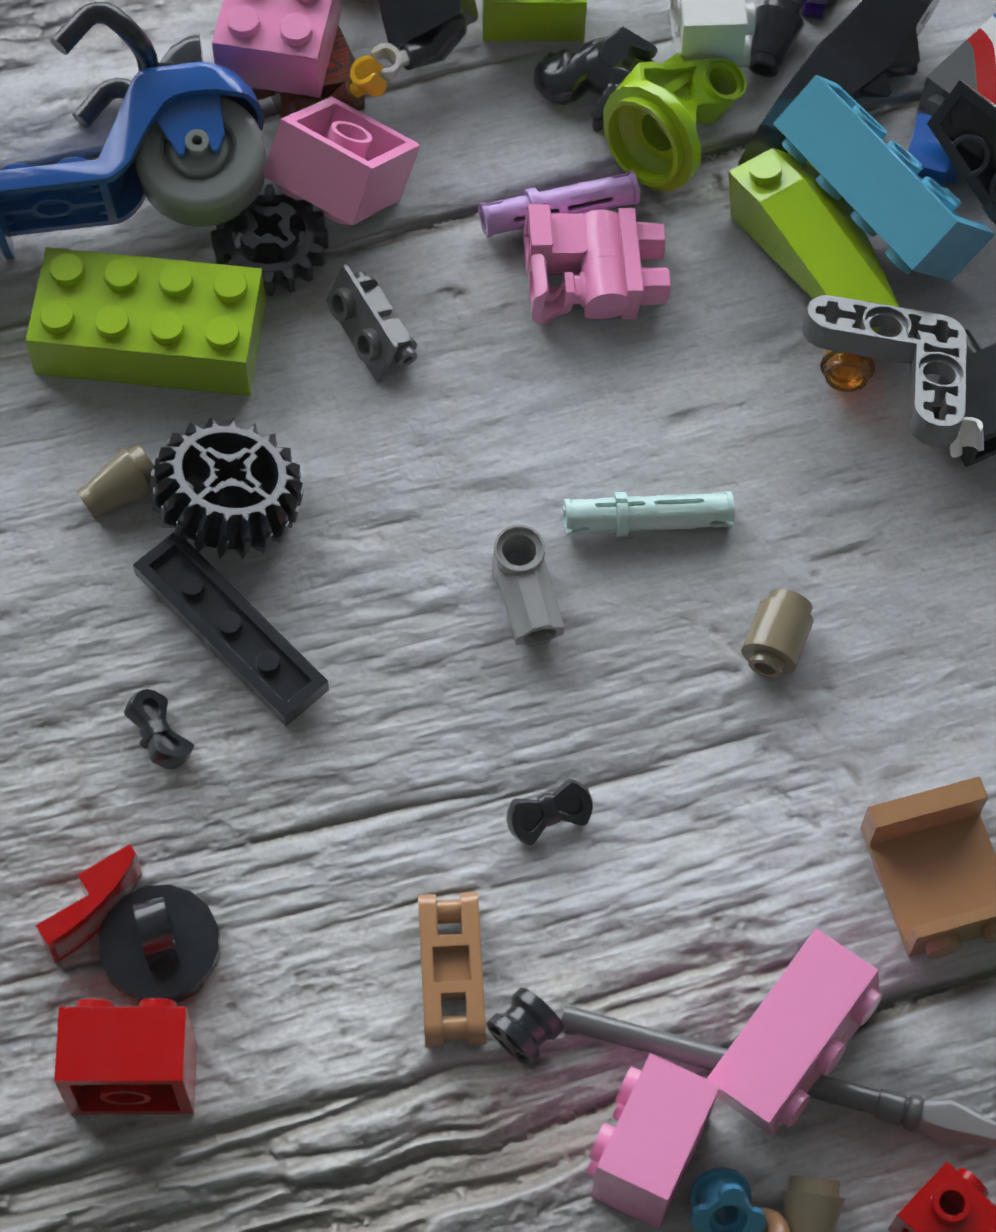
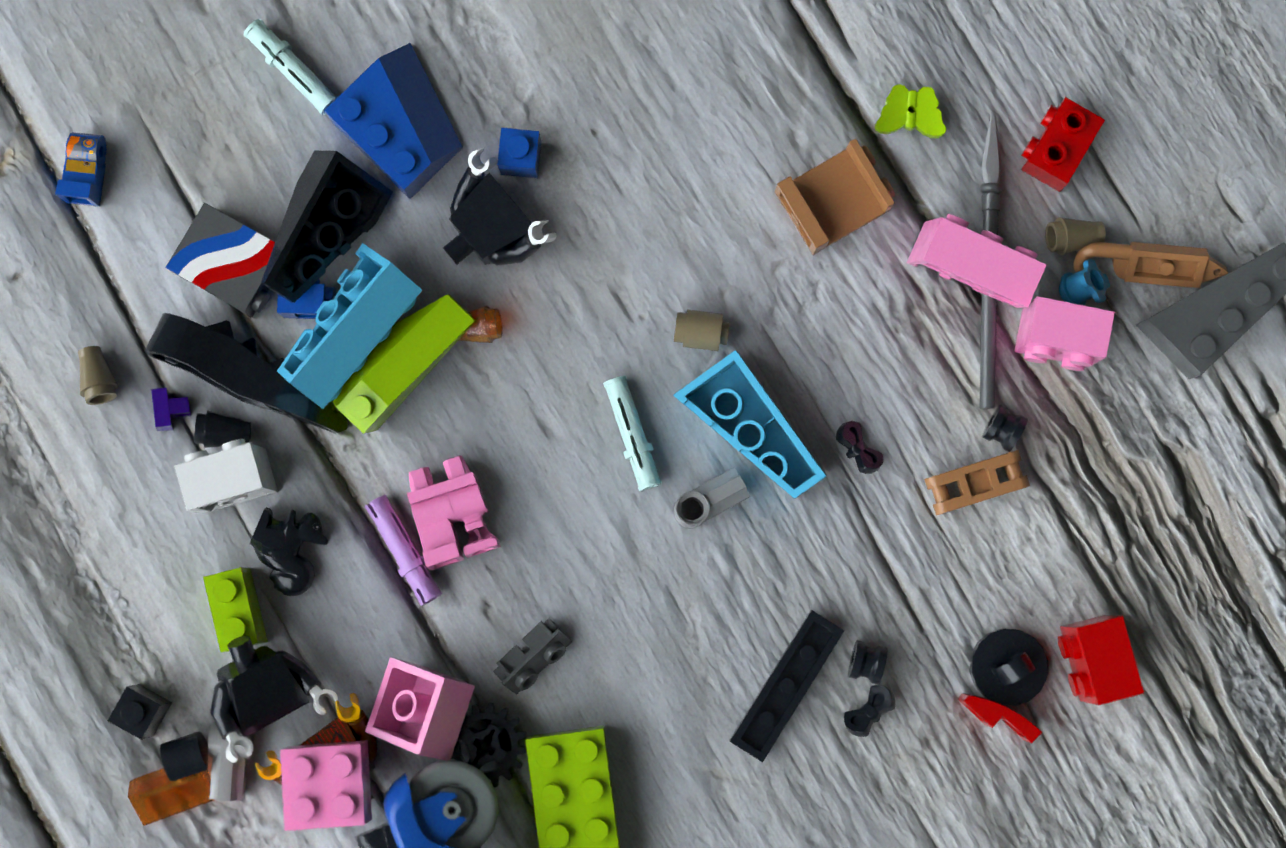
camera: 100 degrees left, 20 degrees up
(118, 482) = (697, 789): dark tan cone -> none
(226, 476) = (663, 702): black gear -> none
(229, 740) = (867, 662): none -> black wheel
(619, 665) = (745, 415): none -> medium azure wedge
(656, 113) = (323, 496): lime piece -> none
(922, 352) = (488, 269): dark grey beam -> none

